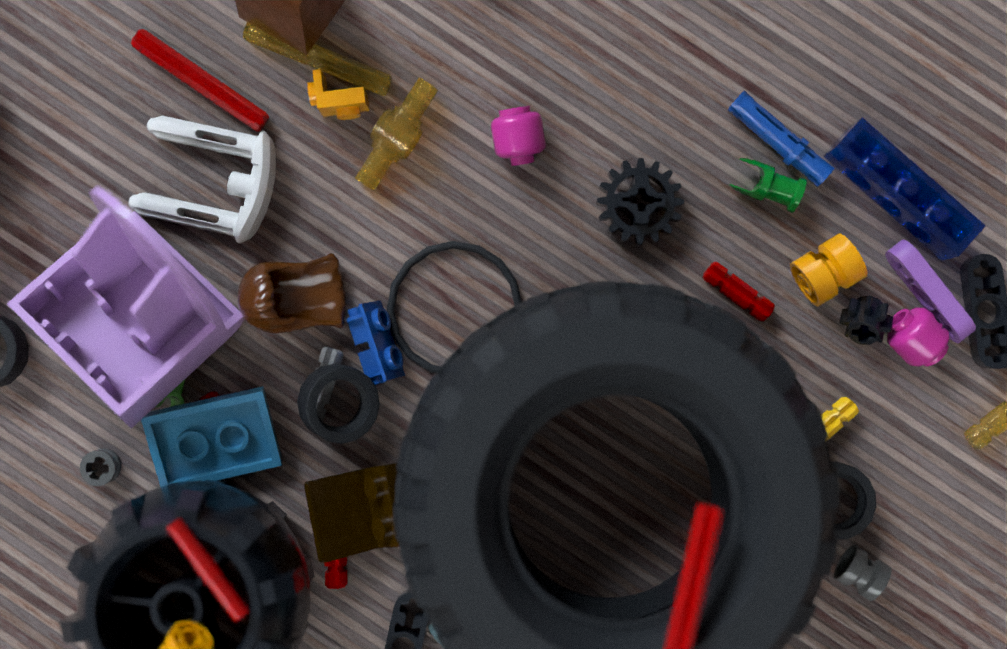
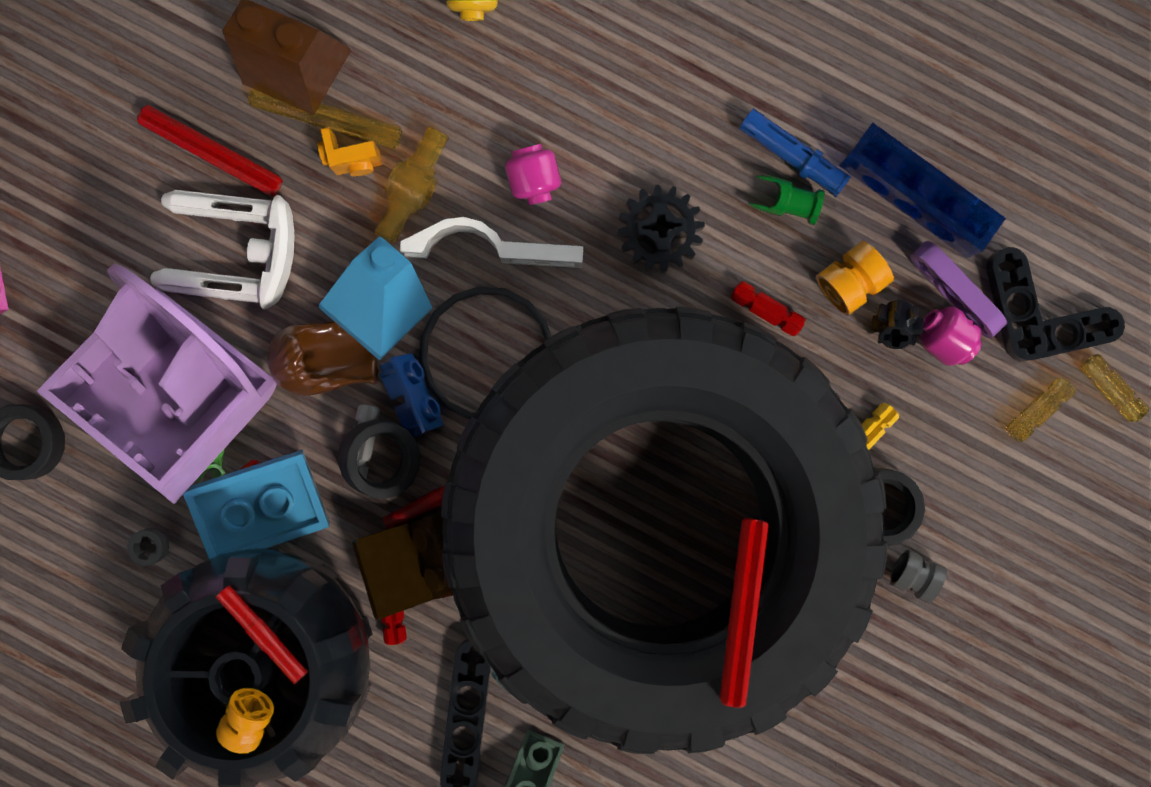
camera: 10 degrees left, 0 degrees up
(352, 244) = (377, 298): none -> dark azure slope
(370, 455) = (415, 509): none -> red piece
(490, 211) = (421, 243): none -> white piece

